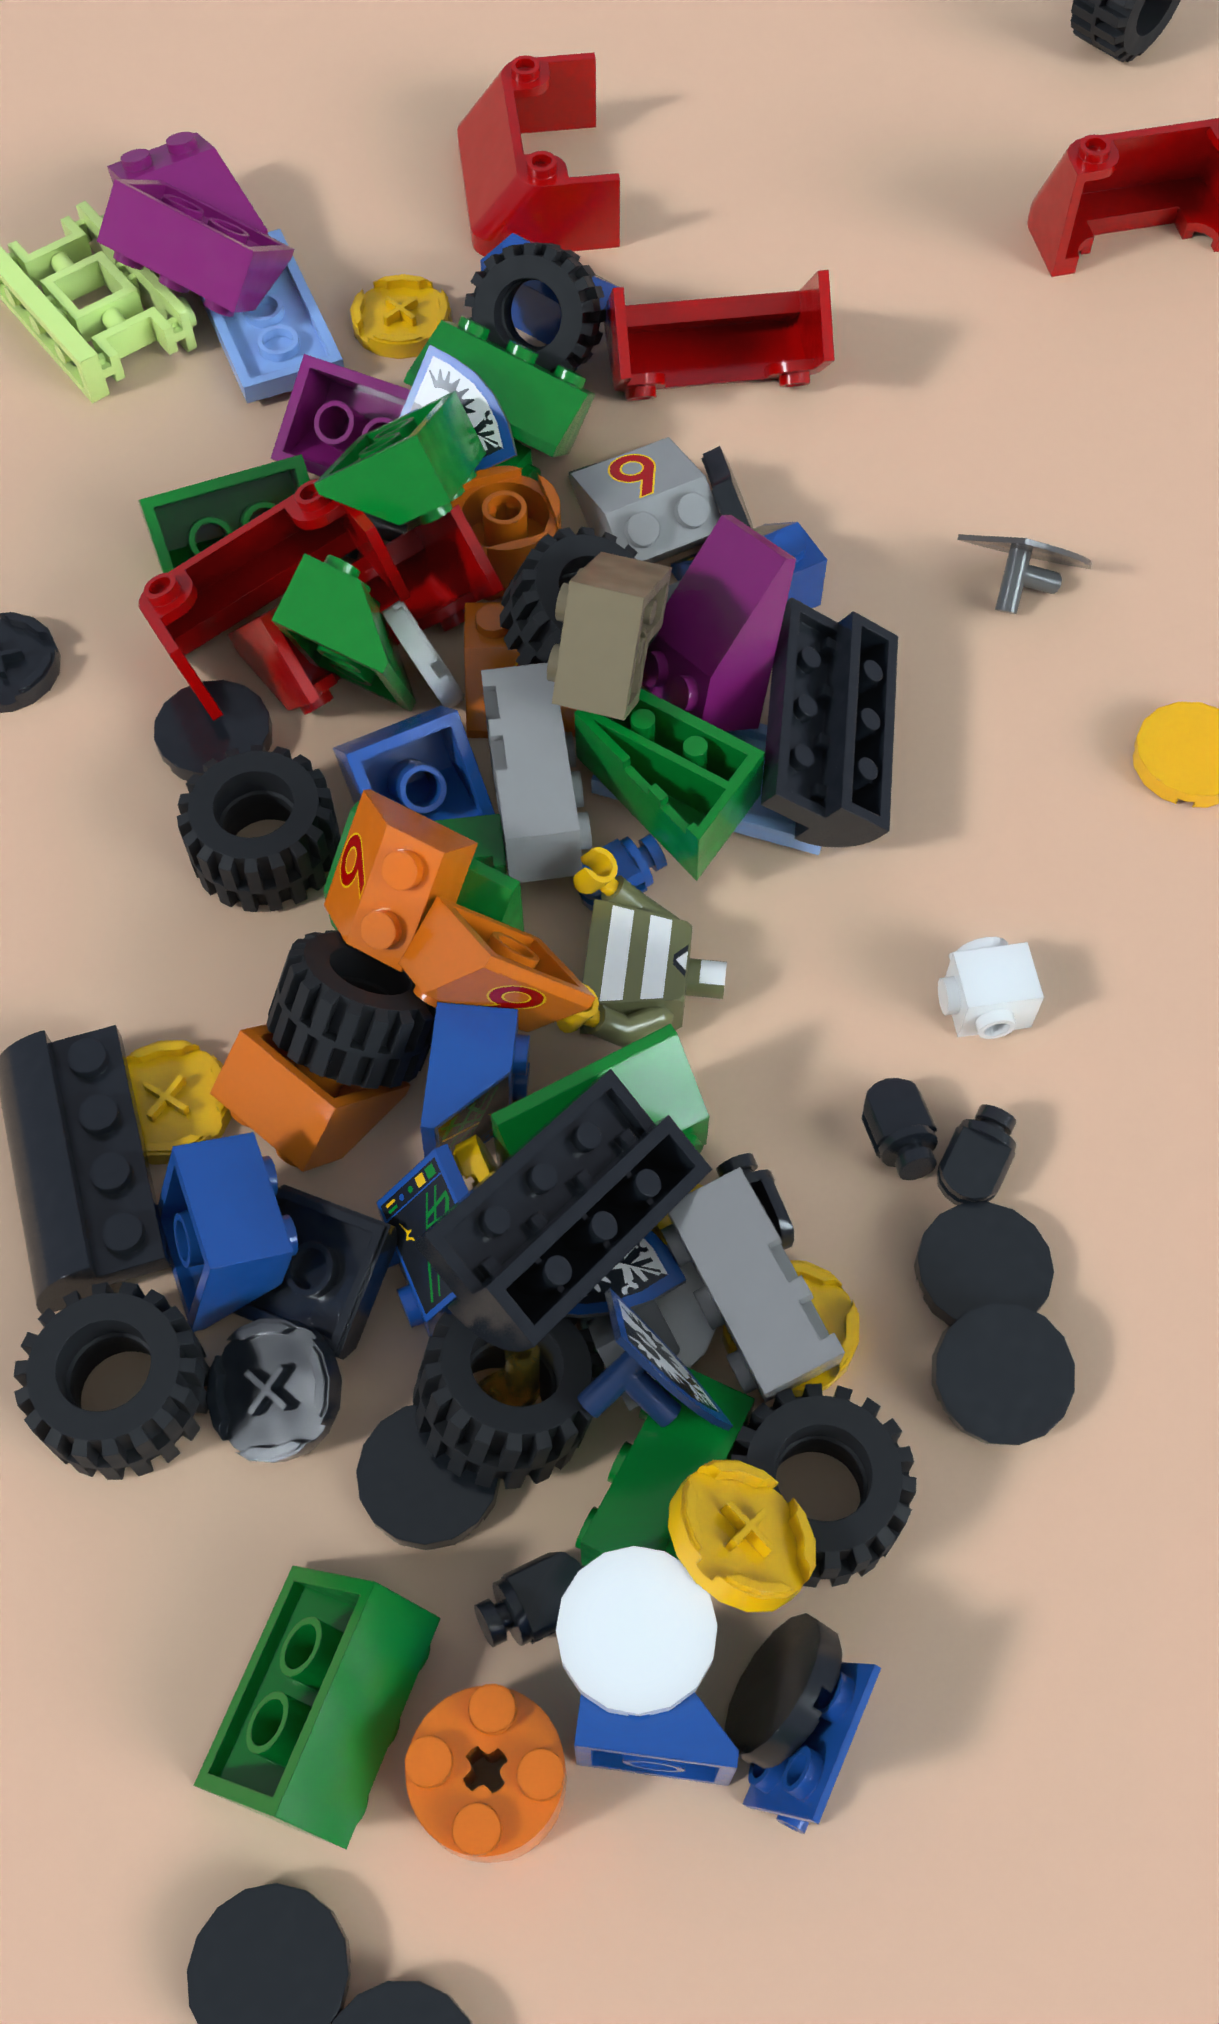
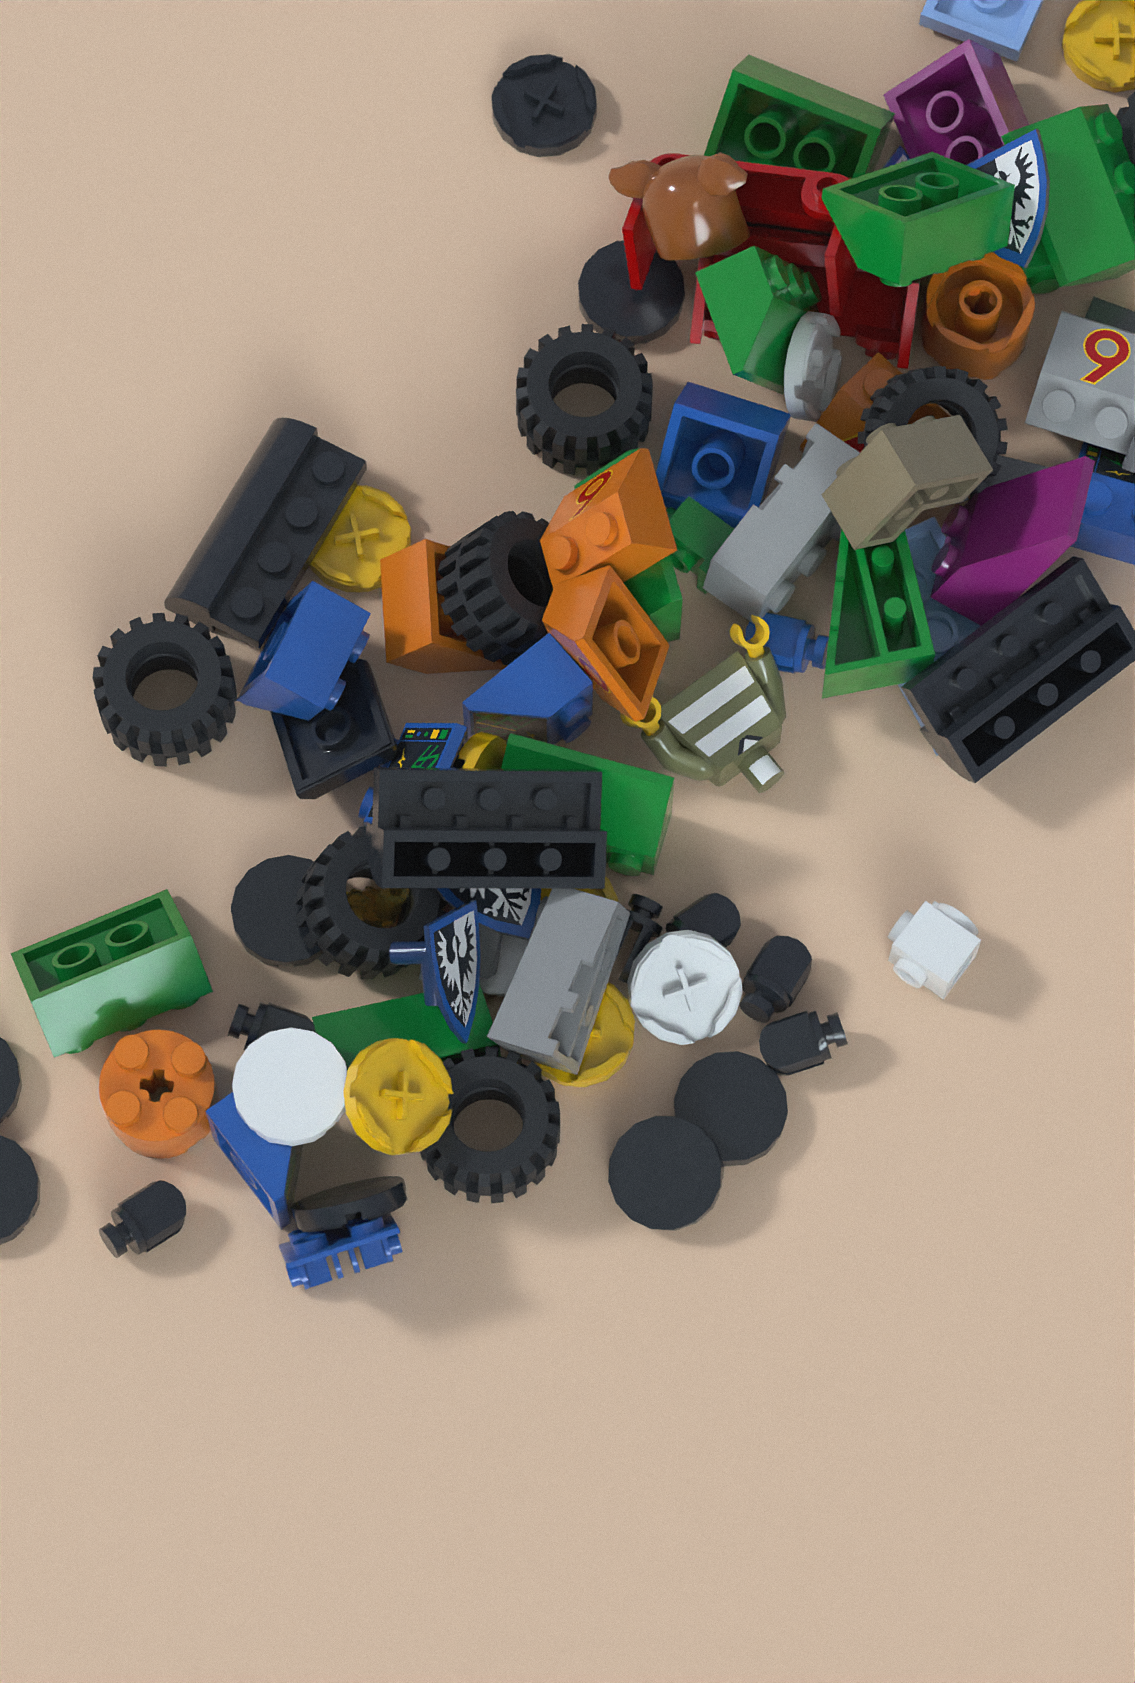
camera: 45 degrees right, 10 degrees up
(207, 583) = (688, 203): none -> dark orange piece
(274, 1390) = (247, 779): black tile -> none
(599, 1921) = (145, 1219): none -> black arm
(800, 1148) = (711, 916): none -> black arm
(844, 1201) = (684, 987): none -> white tile

